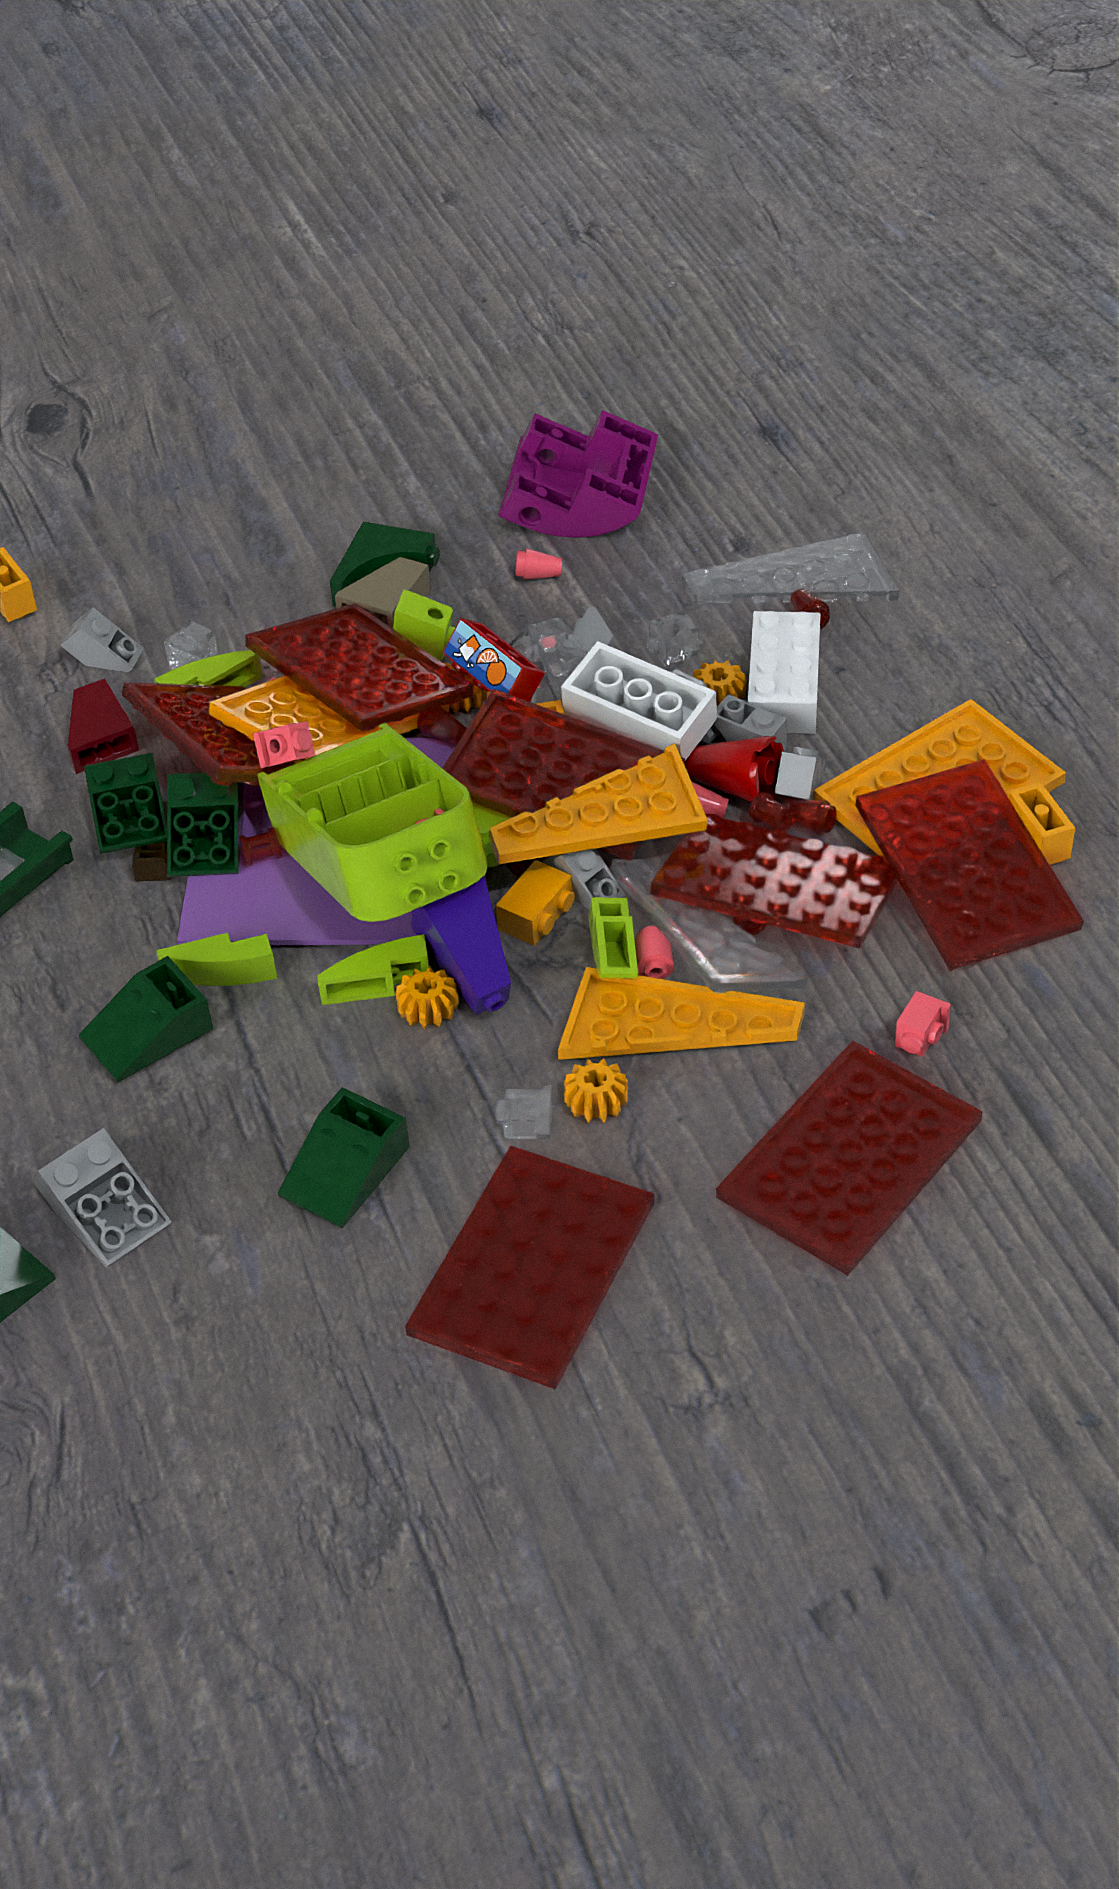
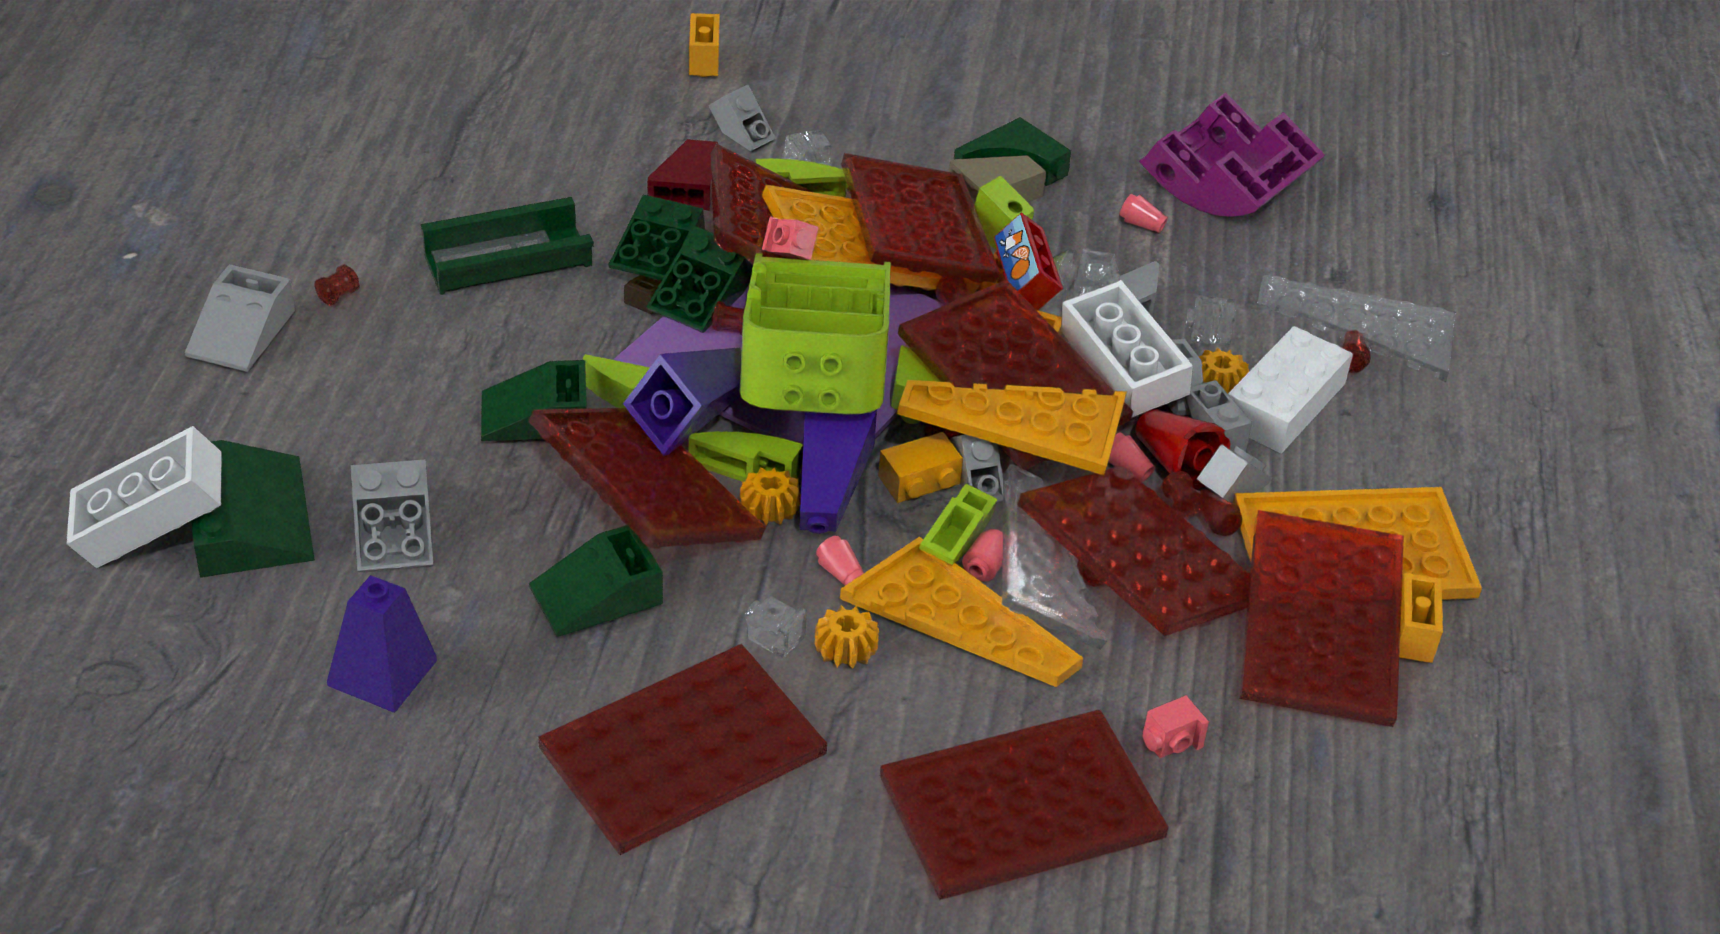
camera: 25 degrees right, 5 degrees down
(209, 1325) = (380, 646): none -> dark purple slope
(293, 943) = (684, 394): none -> dark purple slope
(311, 1037) = (658, 495): none -> clear red plate
(535, 1025) = (839, 559): none -> coral cone

